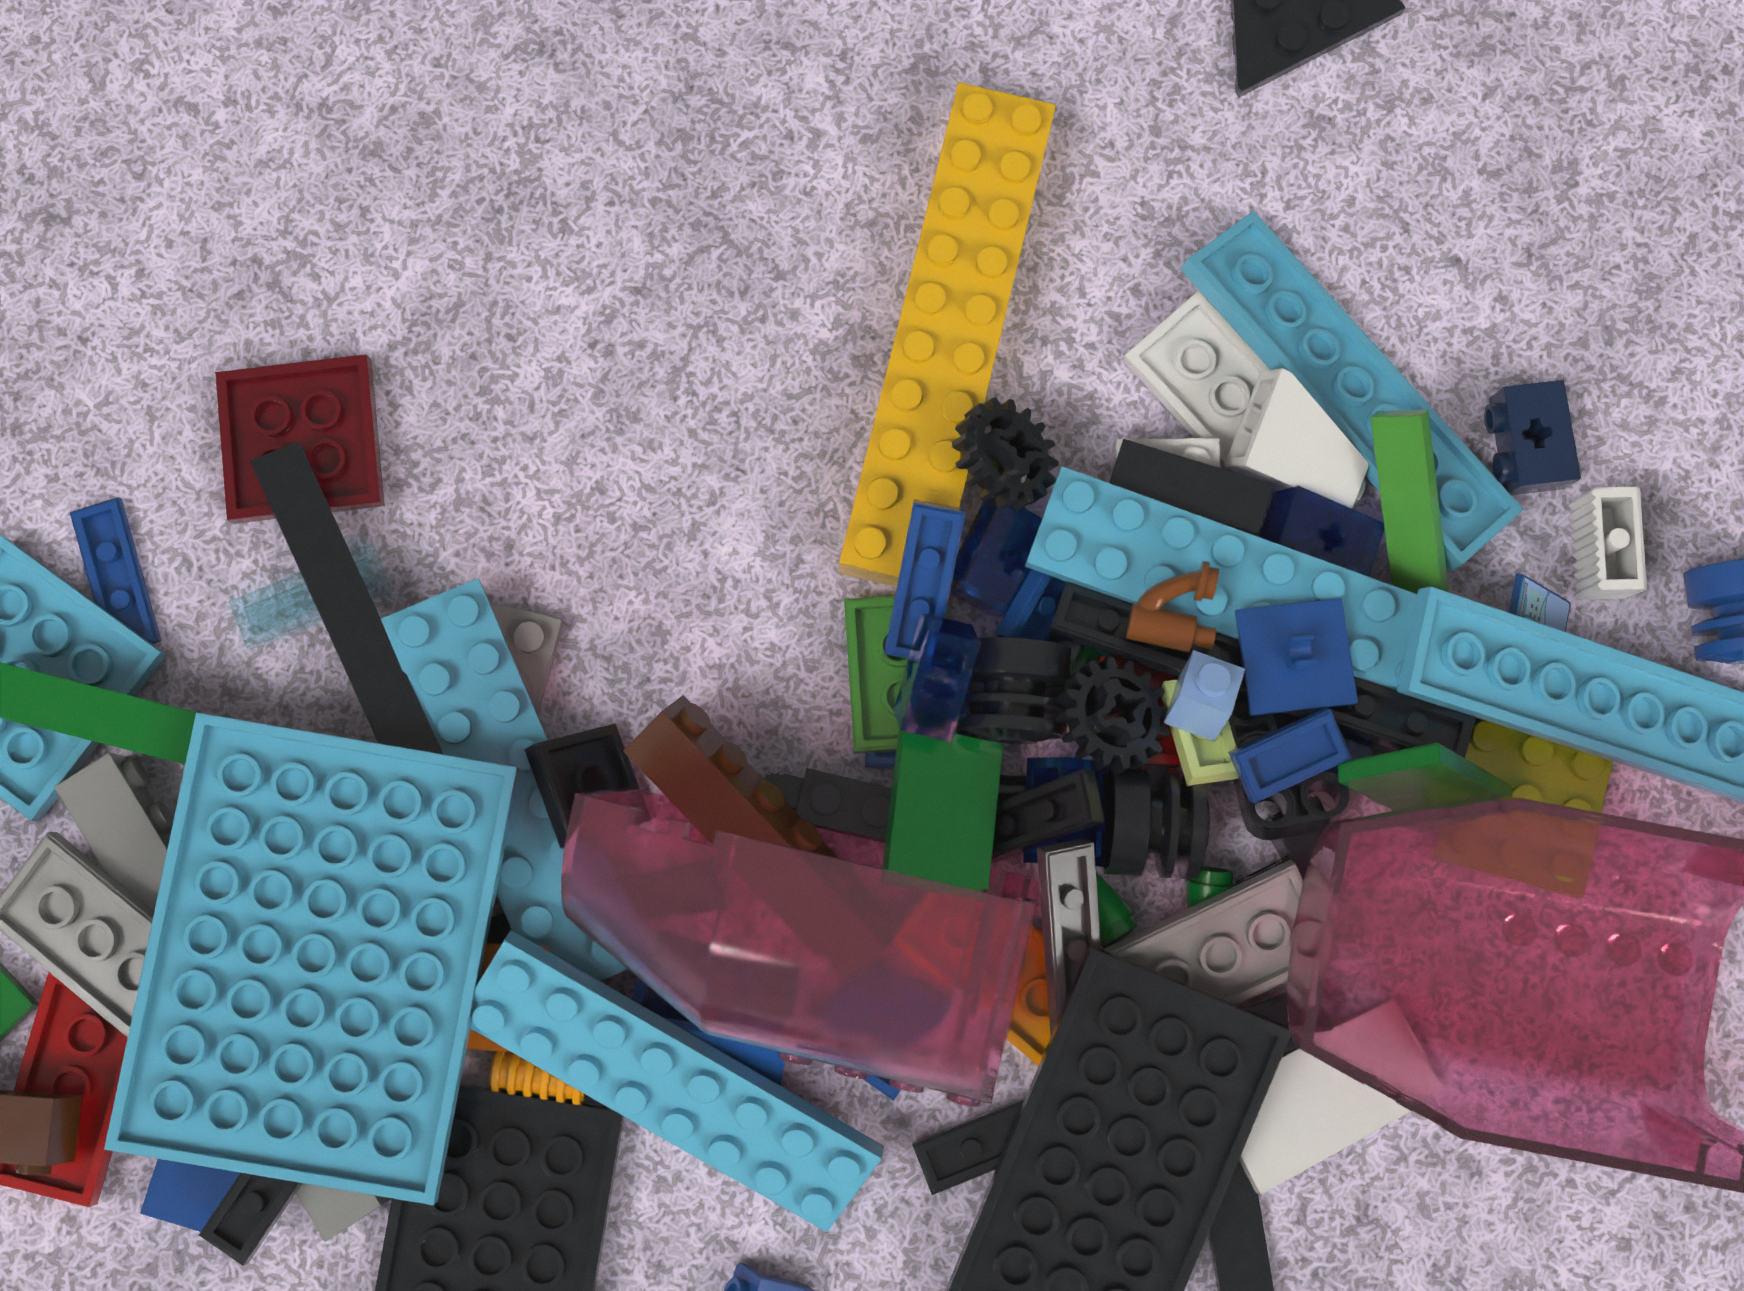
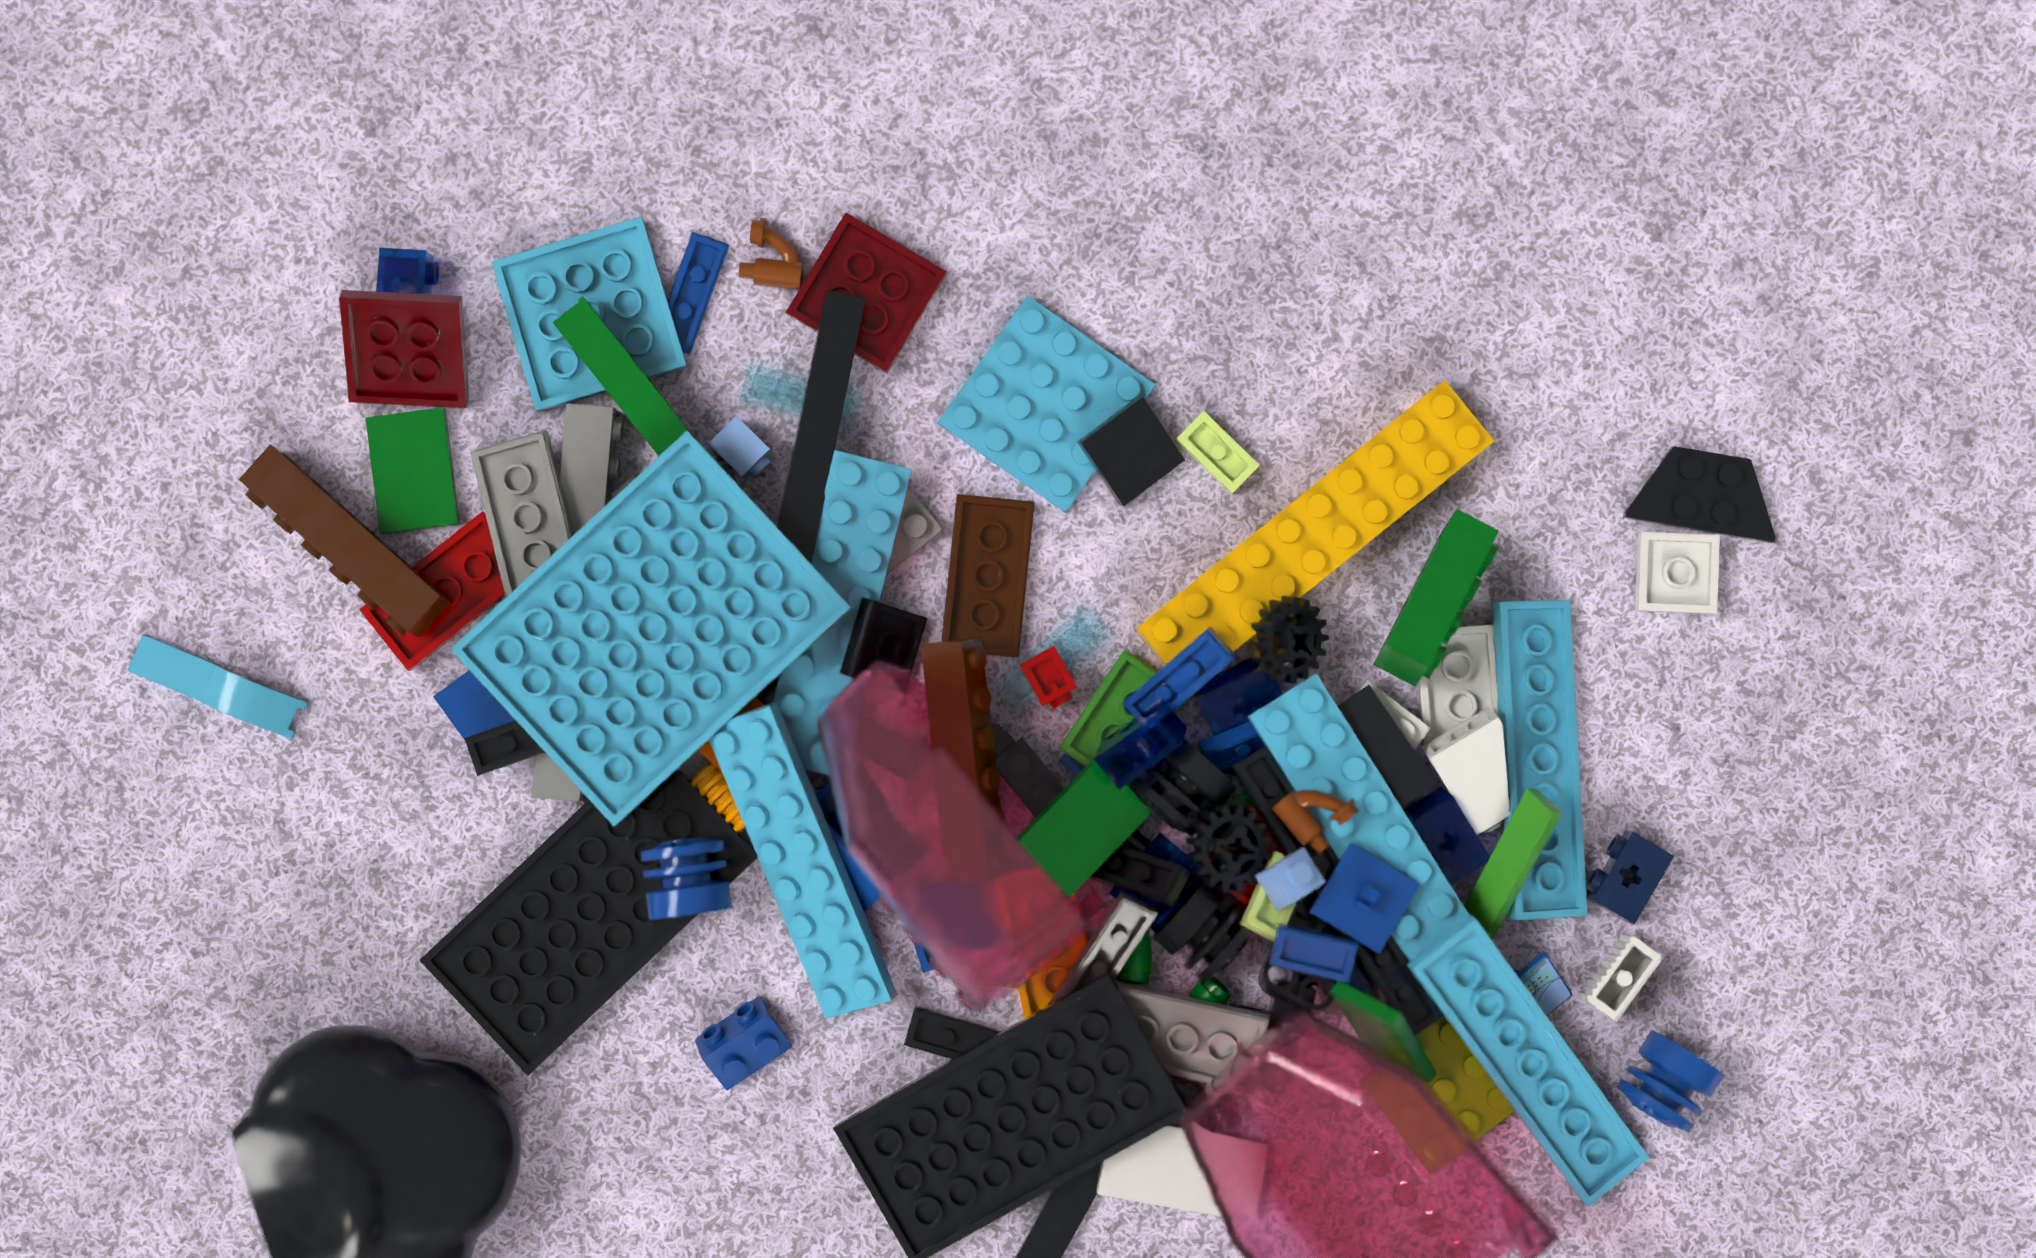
camera: 40 degrees right, 5 degrees up
(183, 492) = (772, 272): none -> dark orange plant
(284, 694) = (742, 449): none -> light blue brick
(557, 1200) = (686, 879): none -> blue wheel
(573, 414) = (1038, 397): none -> medium azure plate
(643, 626) = (988, 572): none -> reddish brown tile
(695, 393) = (1131, 451): none -> black tile
(776, 669) = (1072, 641): none -> clear light blue tile
(785, 330) = (1217, 452): none -> yellowish green plate
(788, 686) = (1049, 678): none -> red bracket
(1123, 300) = (1435, 599): none -> green brick
(1336, 107) = (1677, 572): none -> white plate

